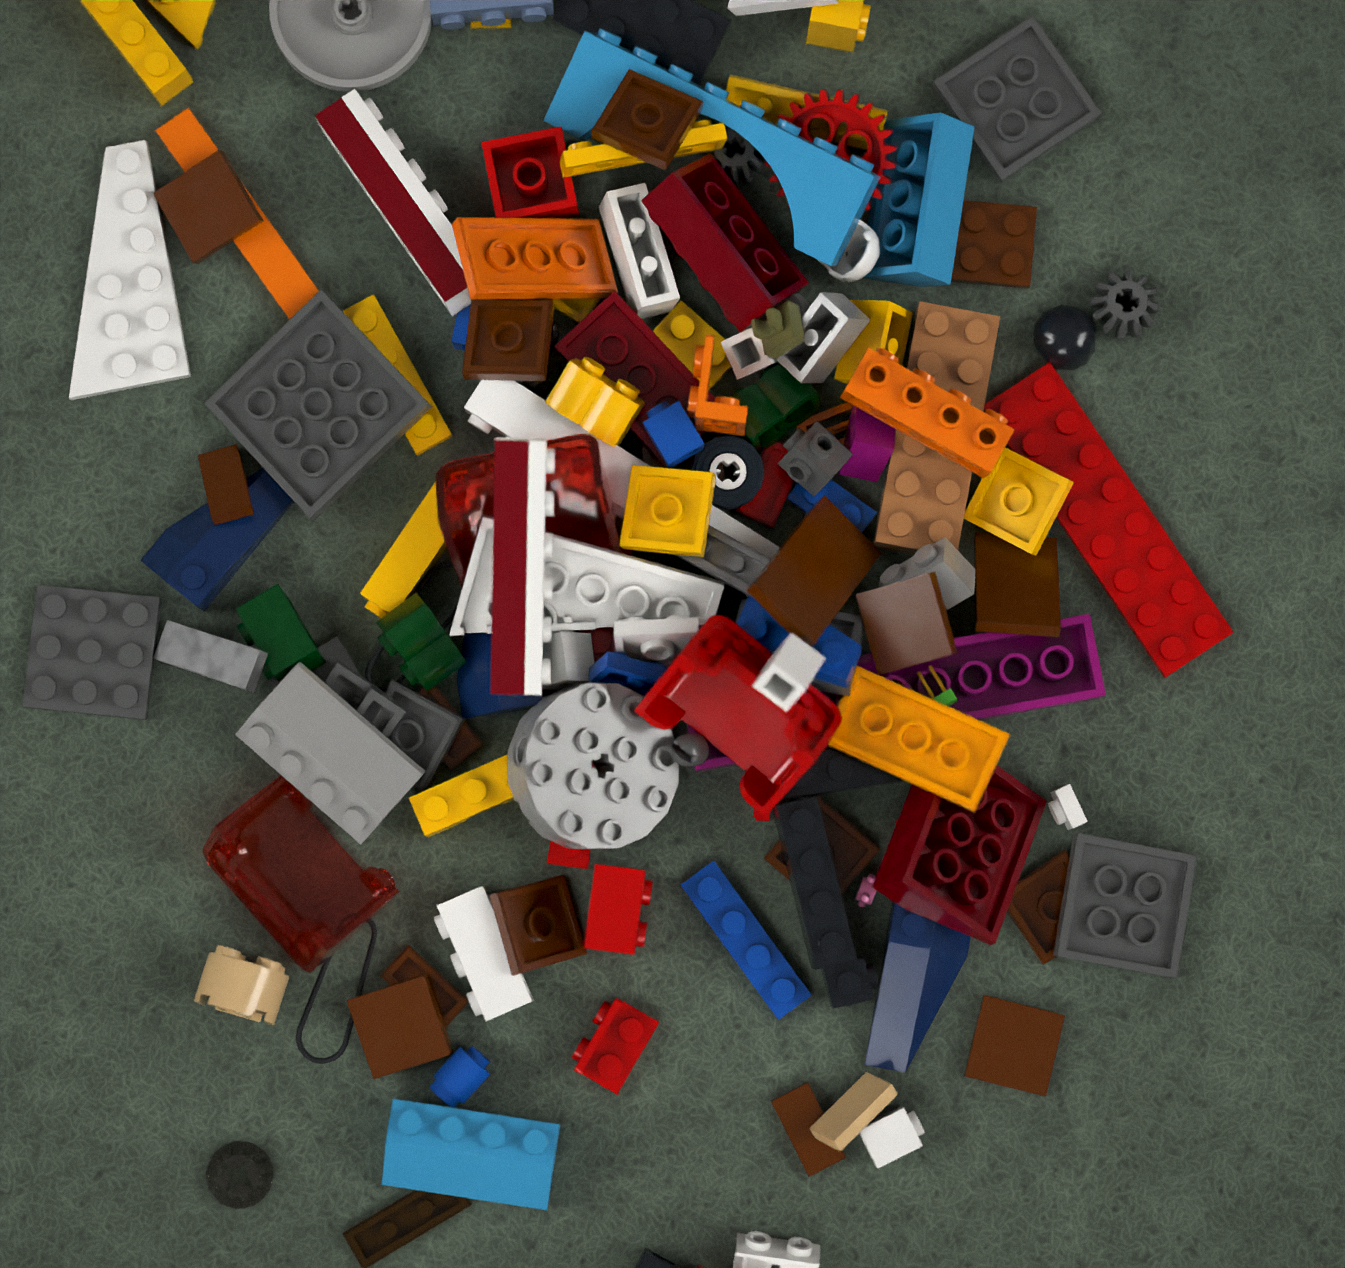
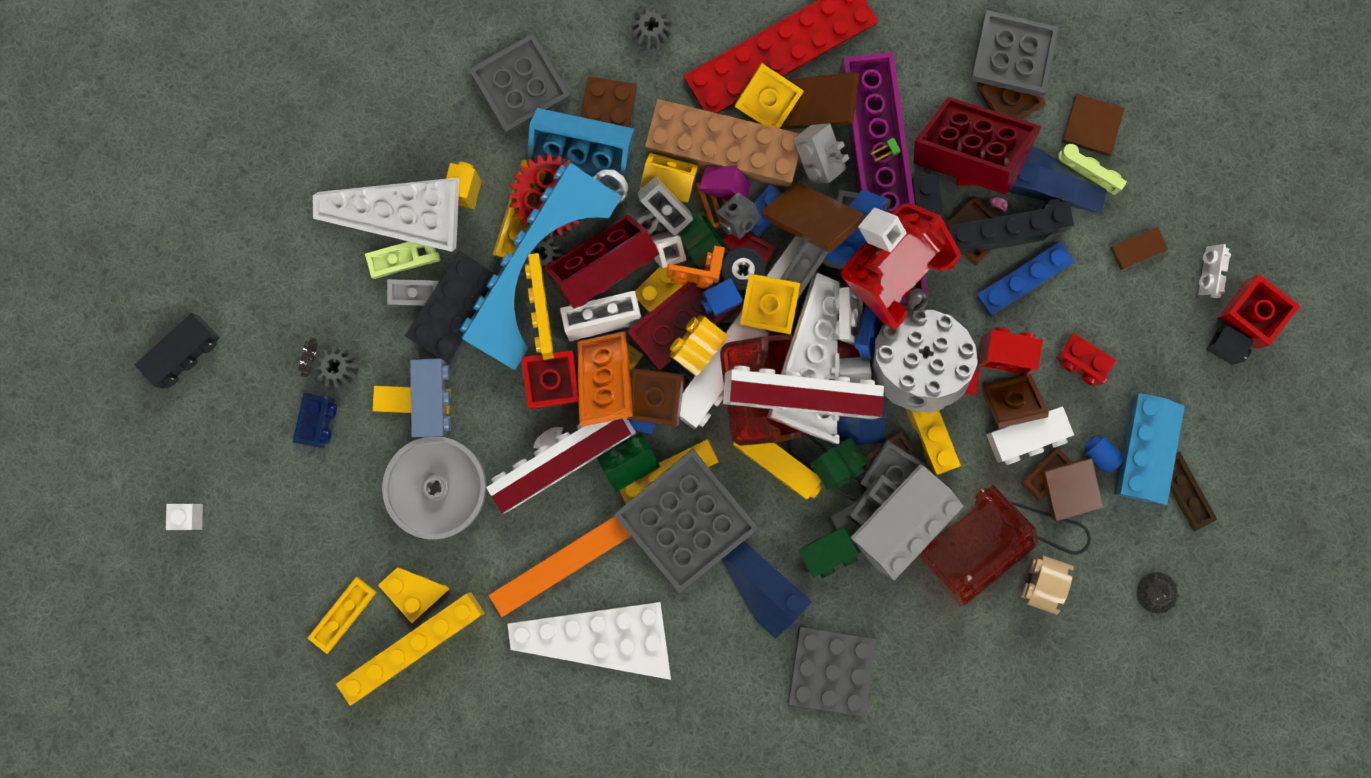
camera: 85 degrees left, 0 degrees up
(208, 207) = (554, 584): reddish brown tile -> none
(210, 656) = (841, 595): flat silver tile -> none
(225, 484) = (733, 581): reddish brown tile -> none
(406, 308) = (628, 462): none -> dark green brick
(442, 182) = (548, 437): none -> white tile
(647, 119) = (524, 300): reddish brown tile -> none
(779, 329) = (660, 228): olive tile -> none
(853, 1111) = (1132, 219): tan tile -> none
(892, 1136) = (1146, 198): white brick -> none
(906, 623) = (848, 162): reddish brown tile -> none
(918, 739) = (919, 159): light orange tile -> none
(927, 412) = (718, 142): orange brick -> none
(937, 1040) = (1091, 169): none -> yellowish green plate
(1065, 337) = (668, 65): black hair -> none
(1066, 808) = (954, 83): white plate -> none

